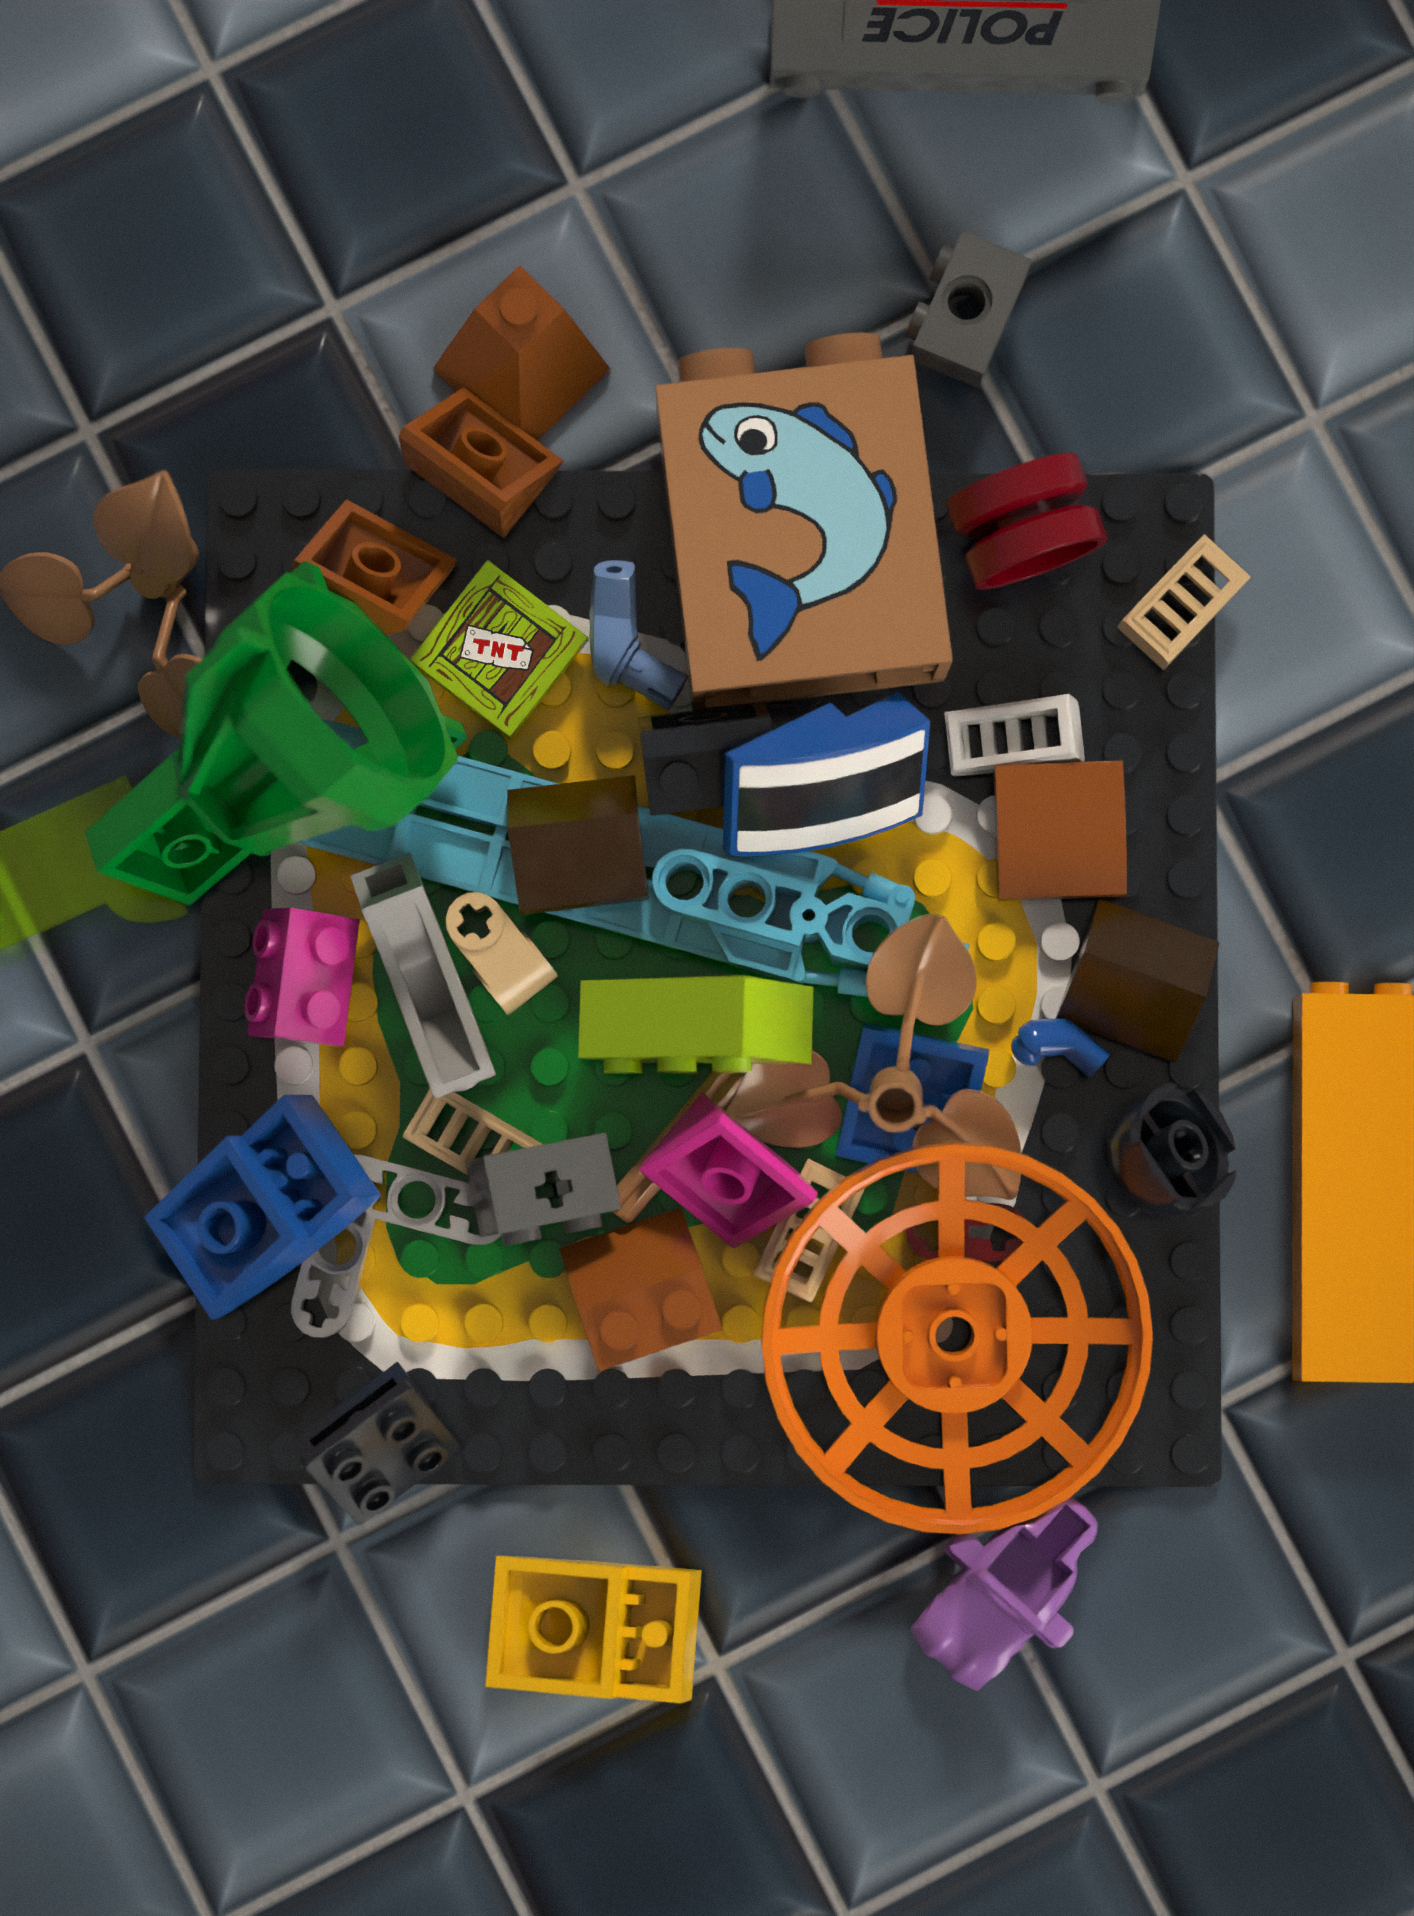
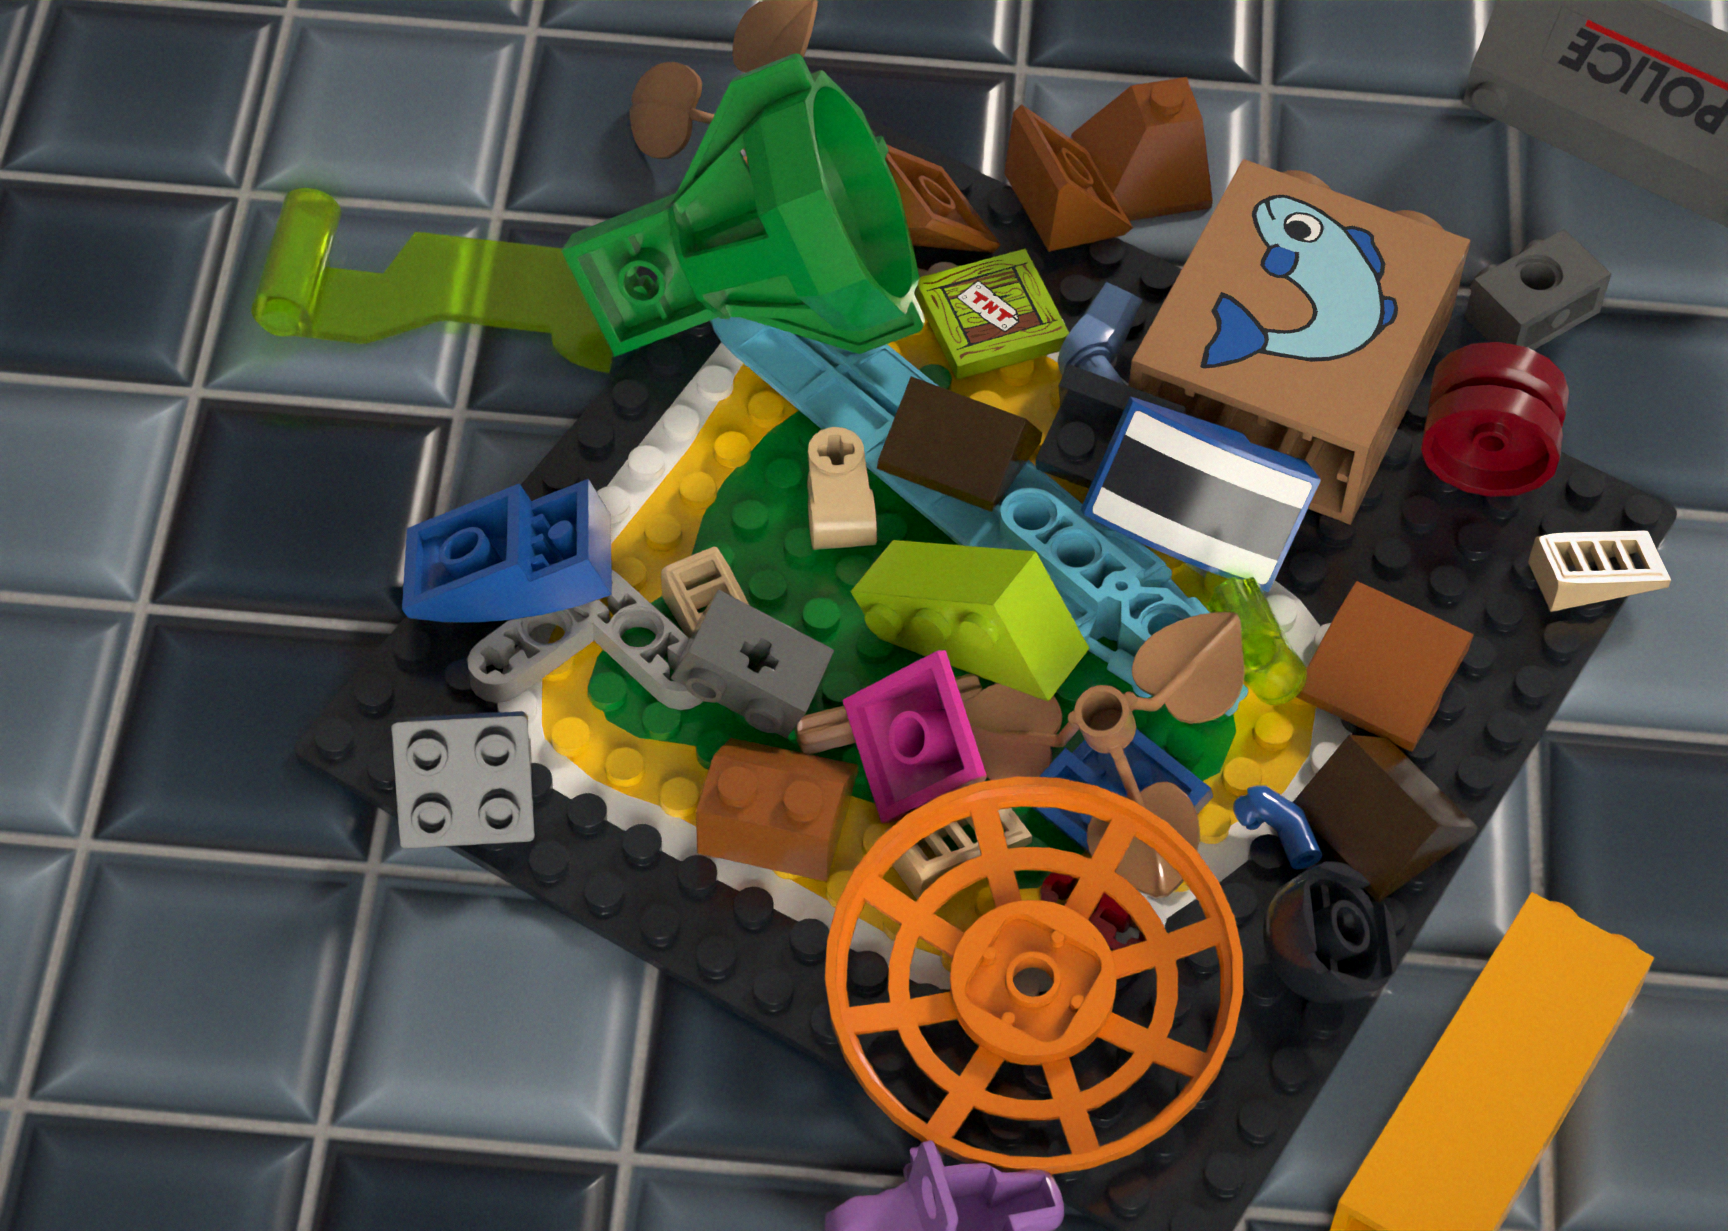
camera: 35 degrees right, 30 degrees down
(302, 976) = (670, 434): dark pink bracket -> none
(423, 976) = (763, 474): light grey arch -> none
(593, 1628) = (542, 1049): yellow slope -> none
(938, 874) = (1270, 662): none -> clear neon green piece
(1060, 706) = (1429, 581): white slope -> none

